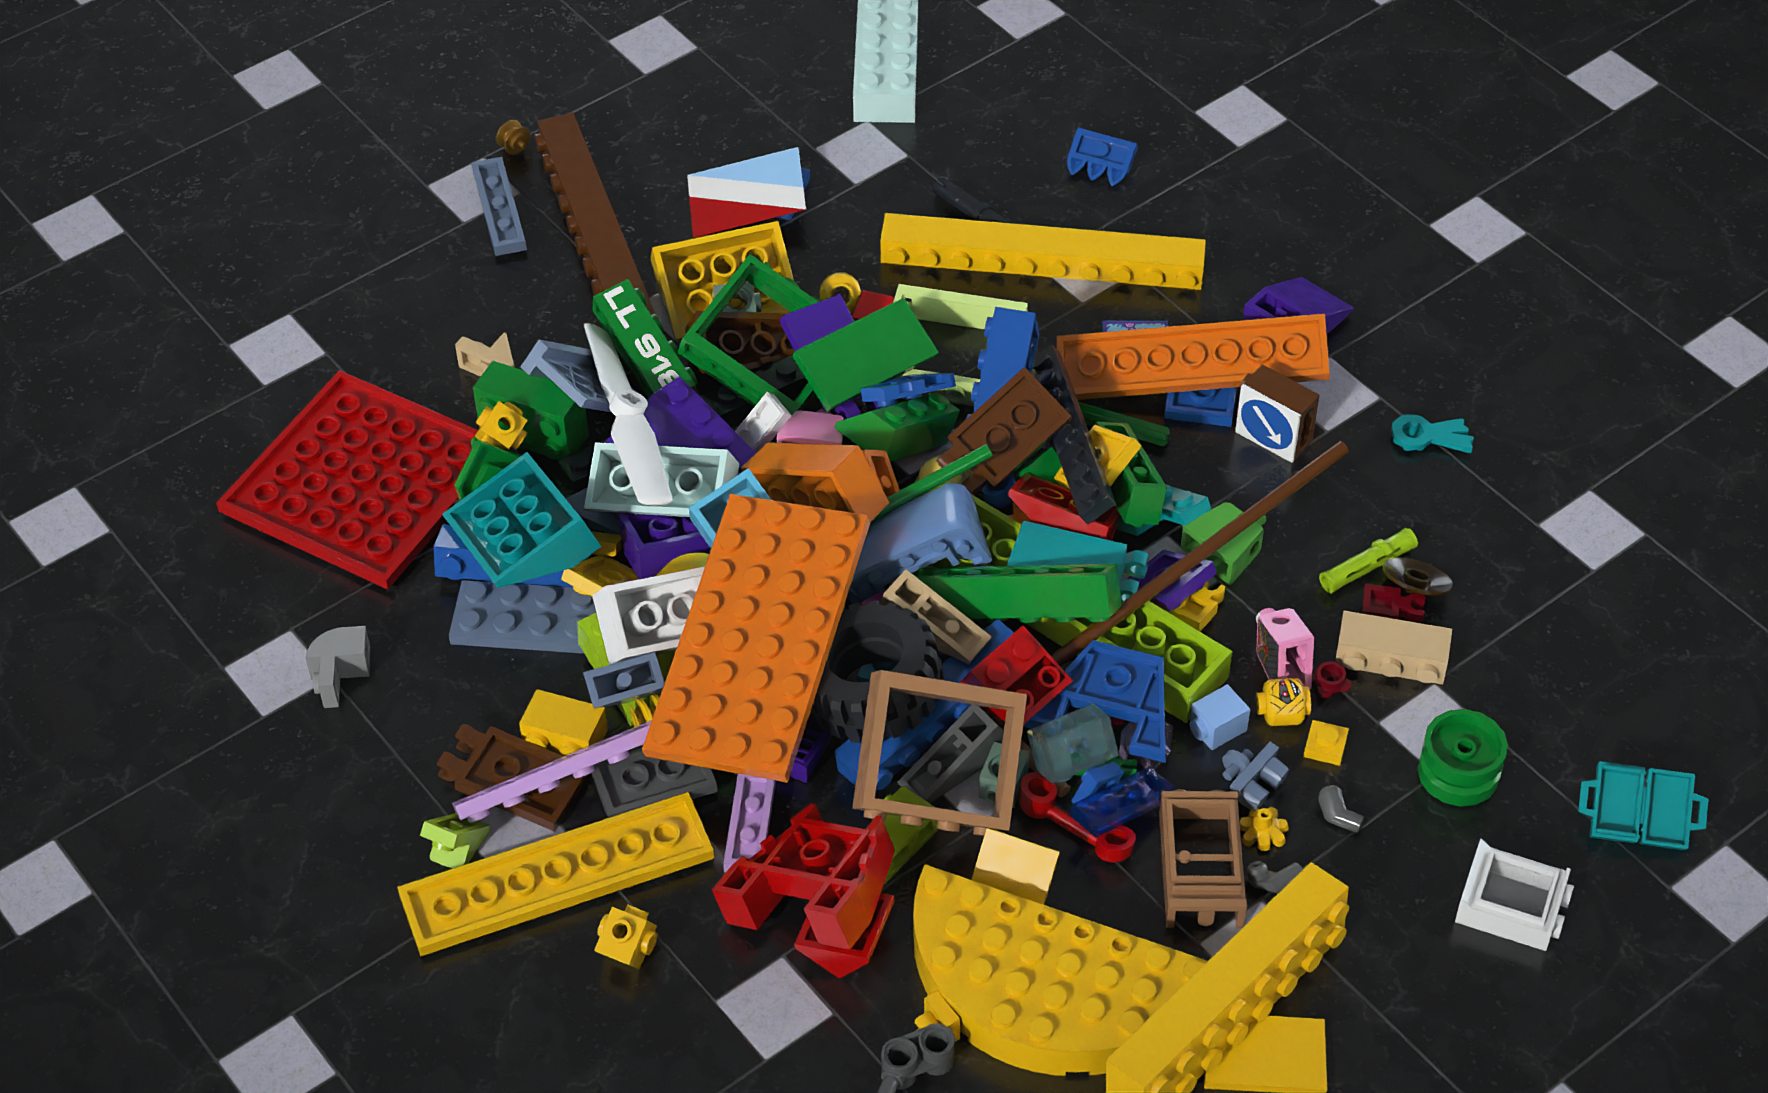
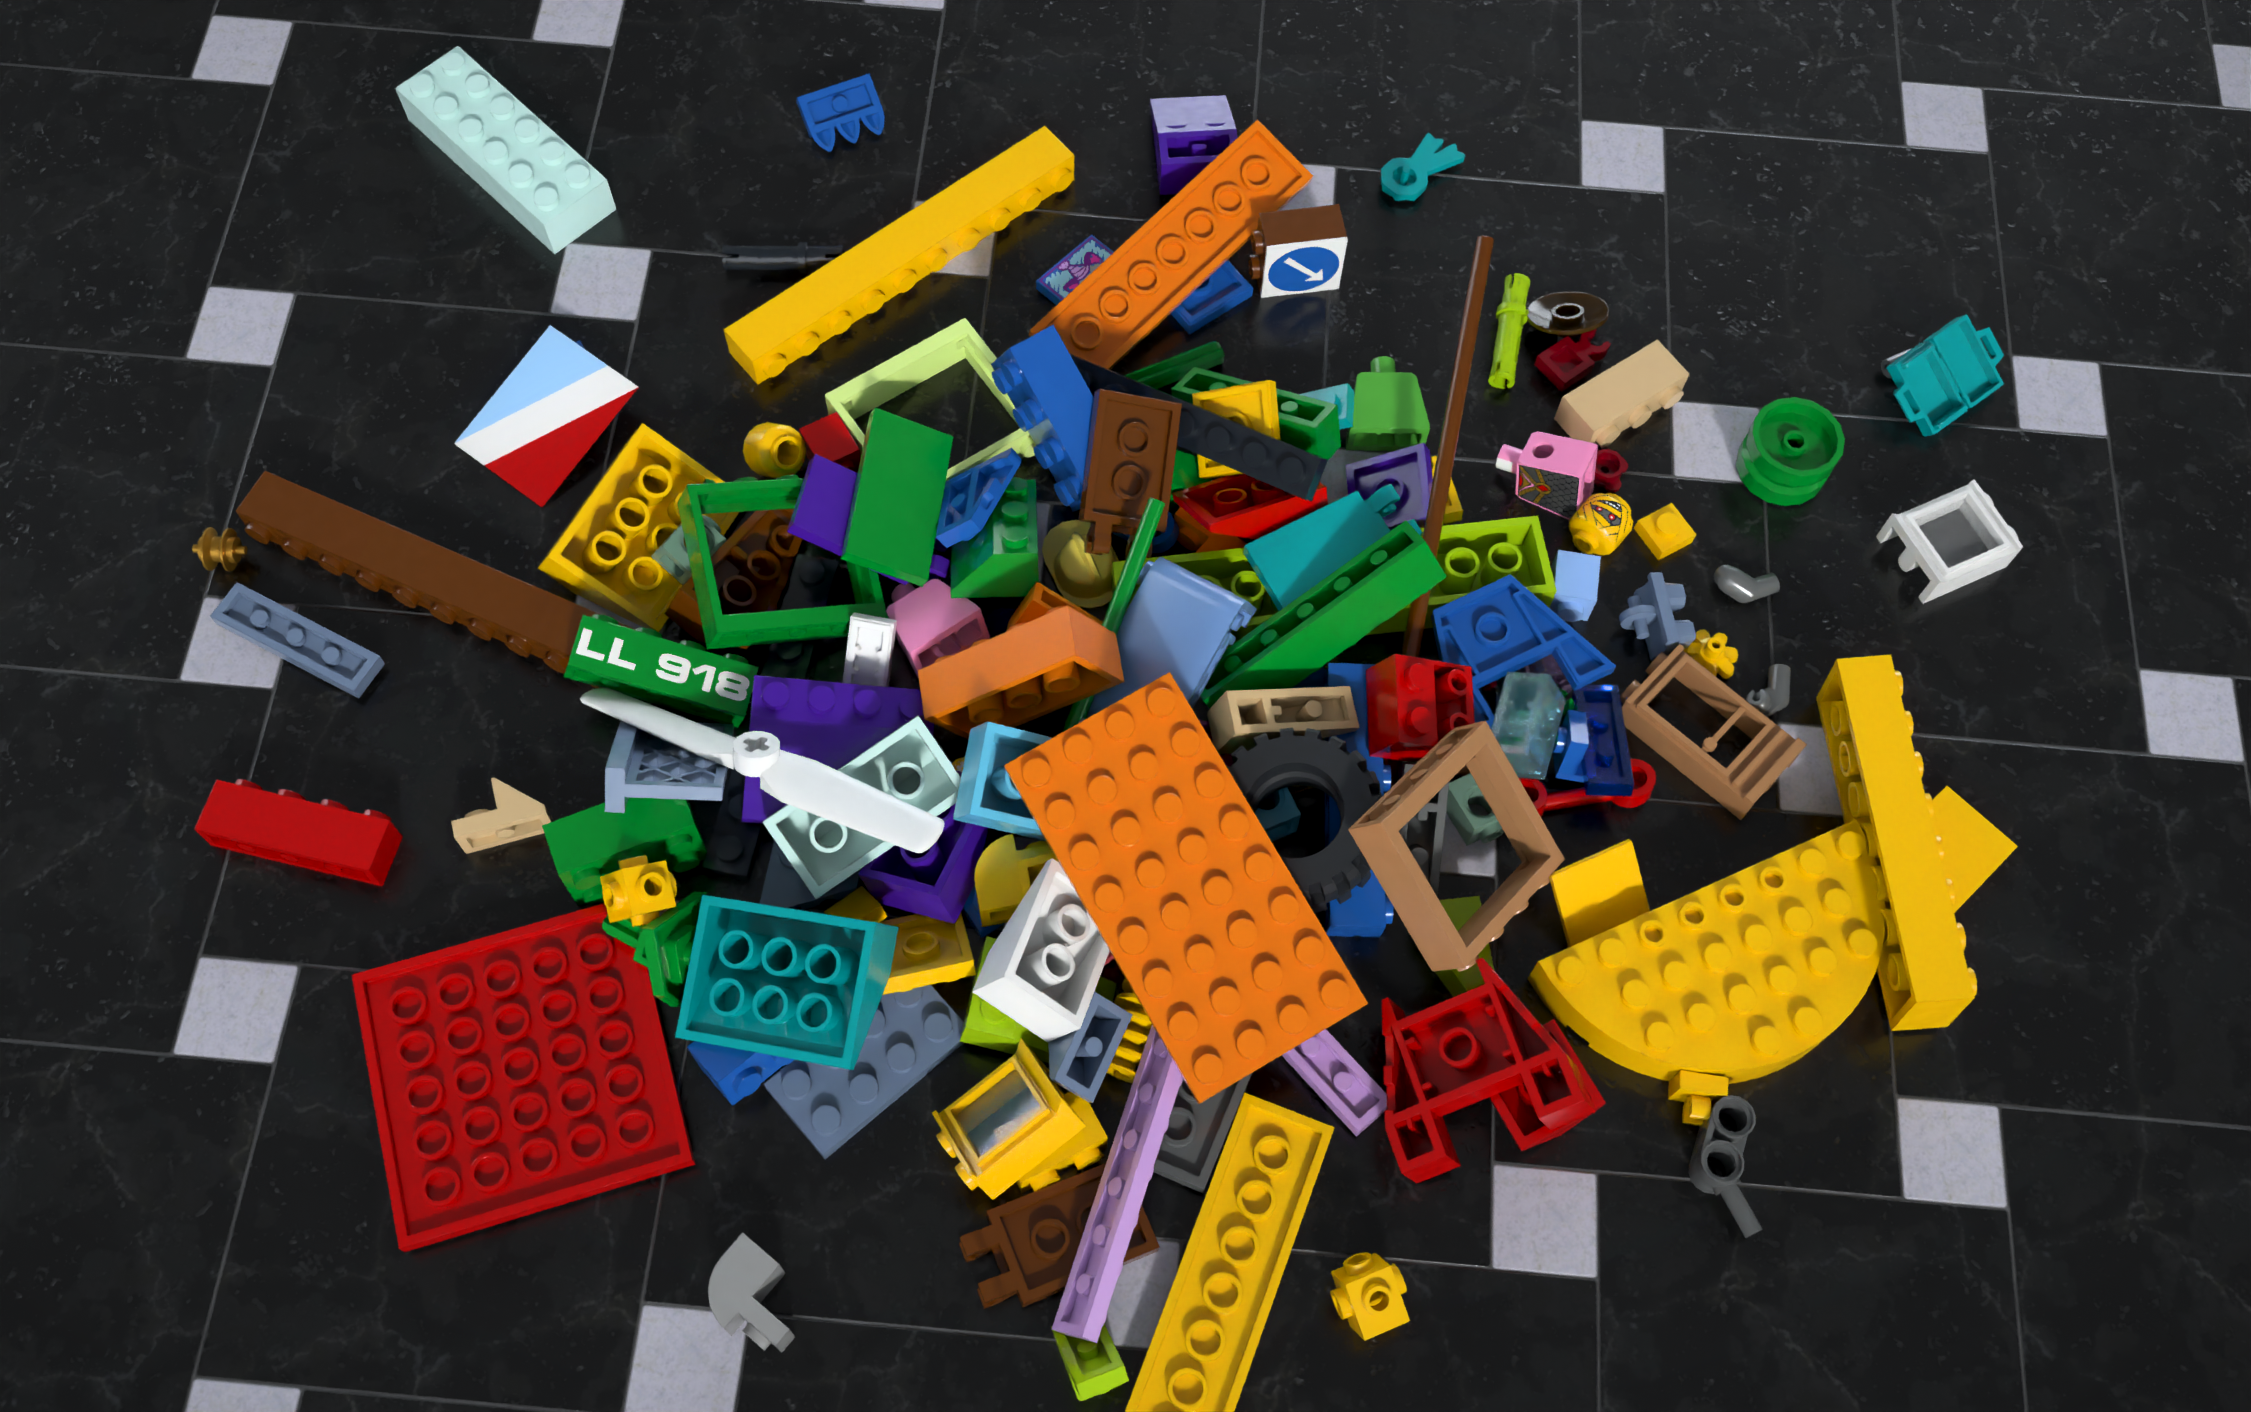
camera: 50 degrees left, 15 degrees up
(394, 291) = (299, 831): none -> red brick
(542, 688) = (1007, 1123): none -> yellow window

